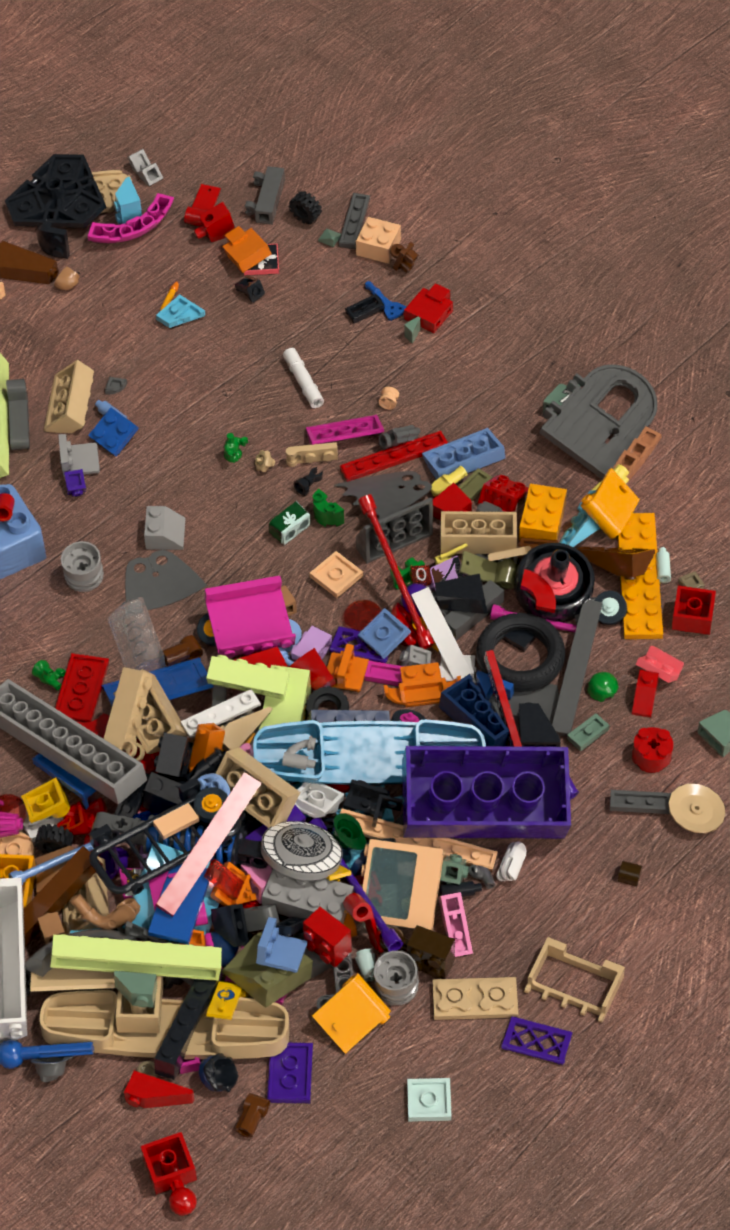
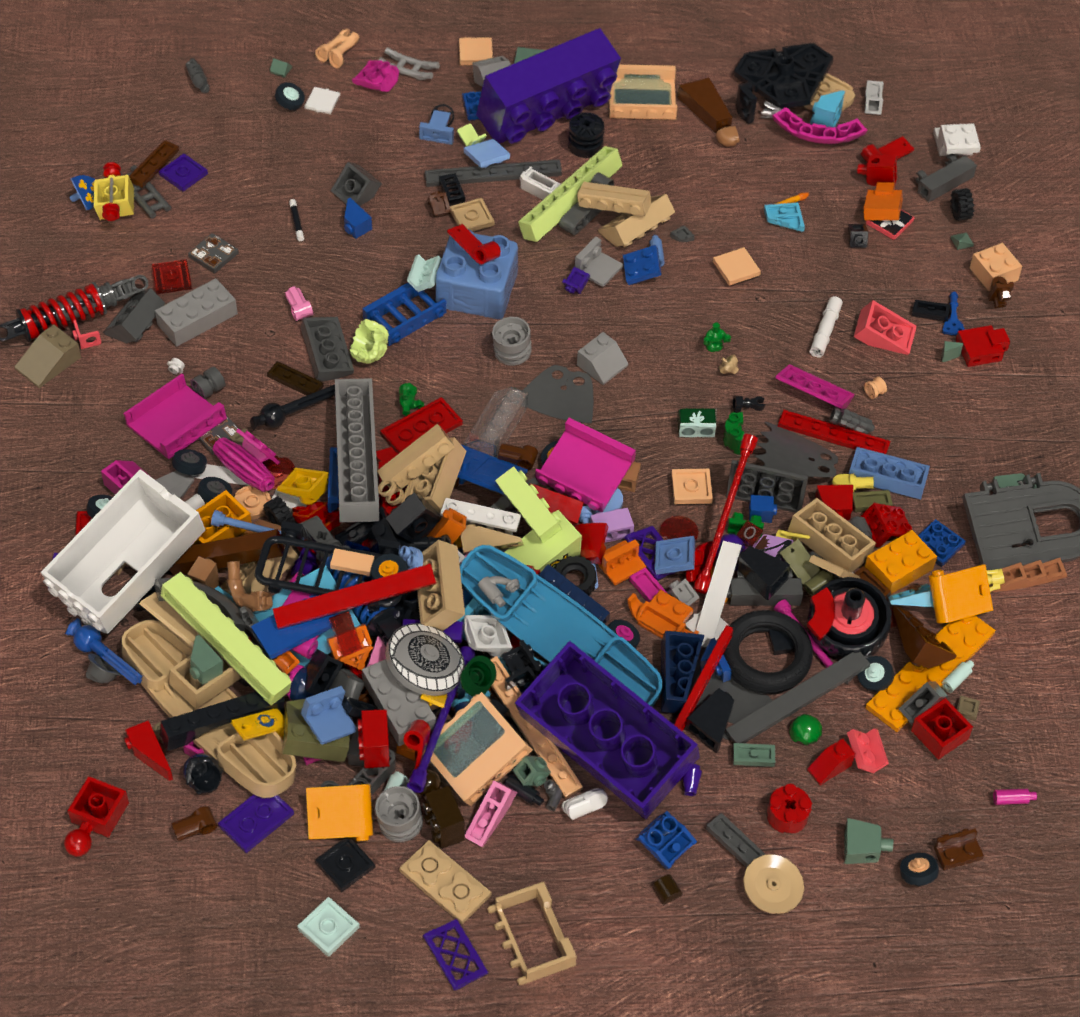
camera: 40 degrees right, 0 degrees up
(42, 393) = (614, 198): none -> tan brick
(80, 234) = (769, 113): none -> flat silver piece
(186, 380) = (736, 266): none -> light nougat tile
(247, 158) = (957, 139): none -> white bracket
(311, 453) = (770, 385): tan plate -> none
(347, 348) = (884, 329): none -> coral slope
(354, 220) = (1004, 235): dark grey tile -> none
(390, 1047) = (345, 863): none -> black tile
(404, 550) = (763, 507): none -> blue brick
(552, 475) = (941, 541): none -> blue tile
(592, 839) = (666, 839): none -> blue slope
(664, 601) = (922, 700): none -> dark grey slope

